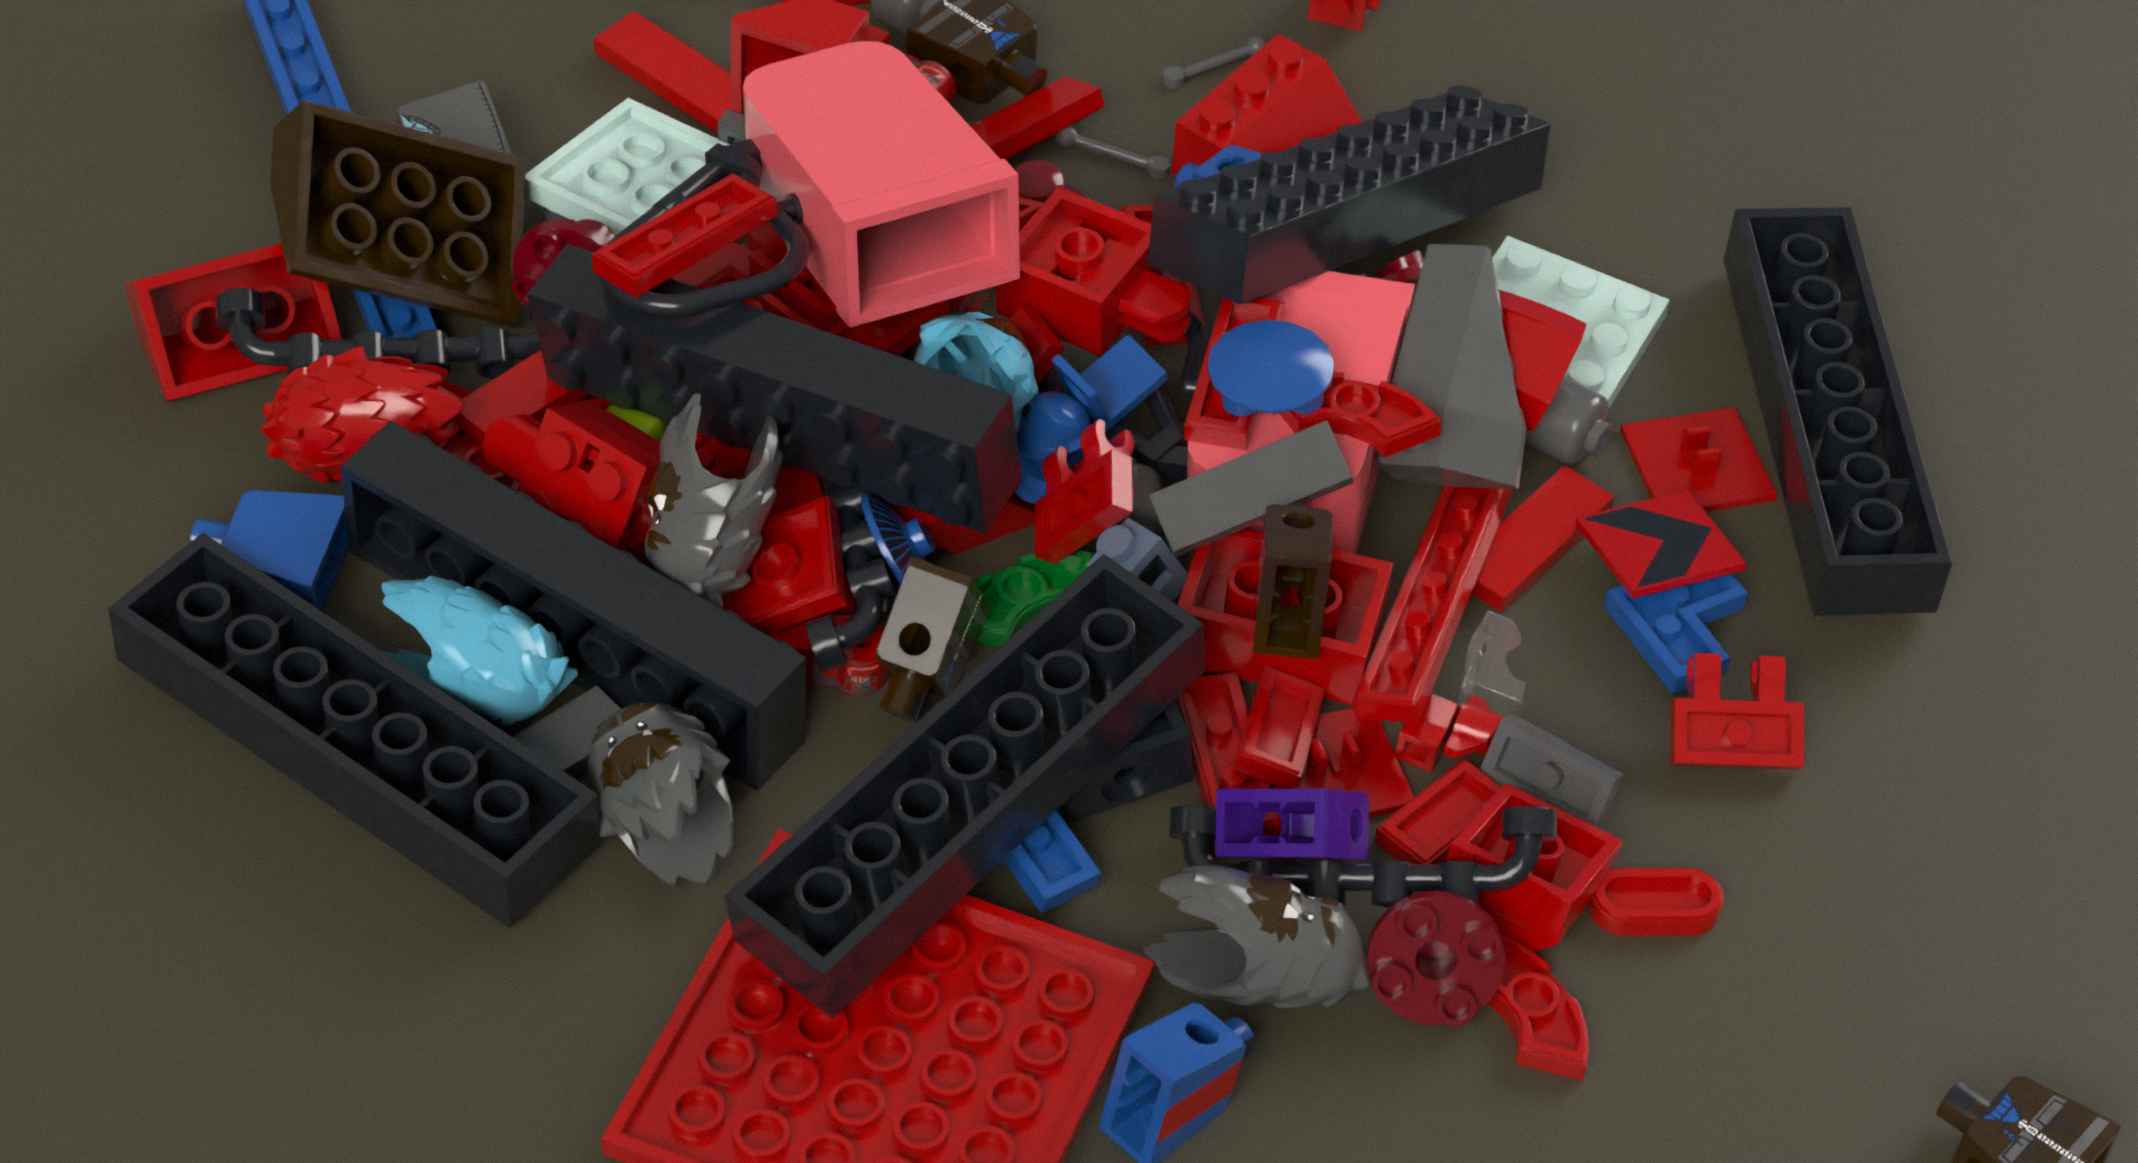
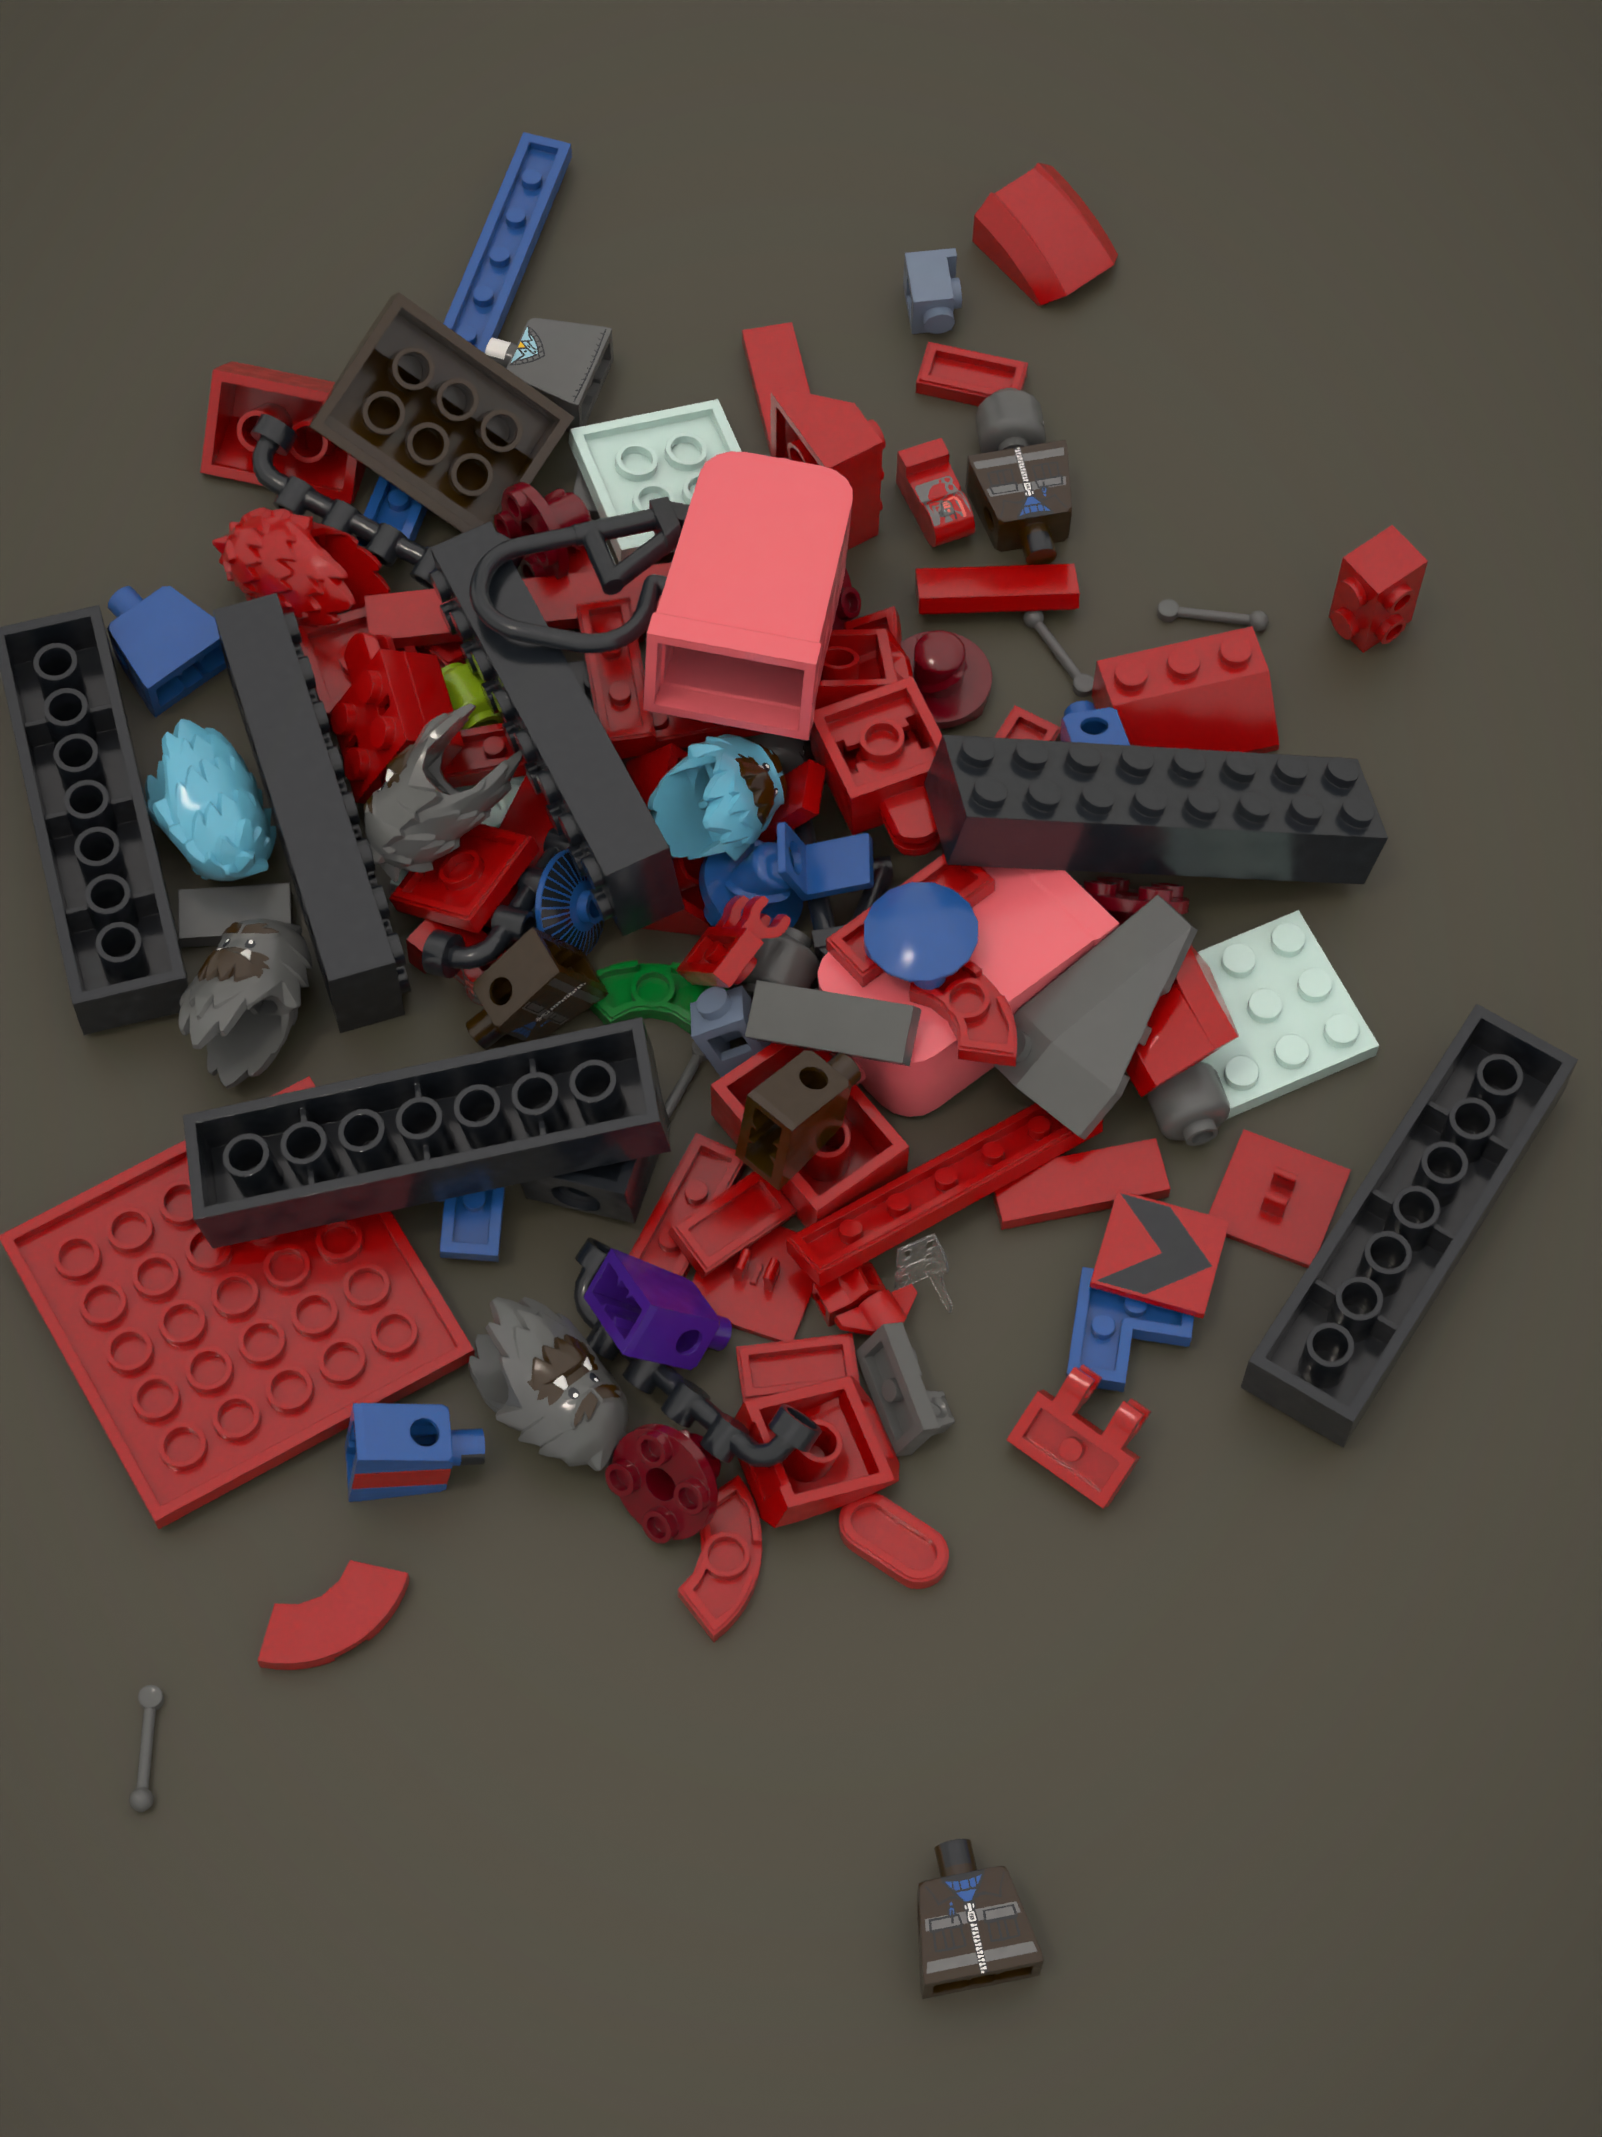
camera: 40 degrees right, 15 degrees up
(684, 235) = (554, 568): red tile -> none

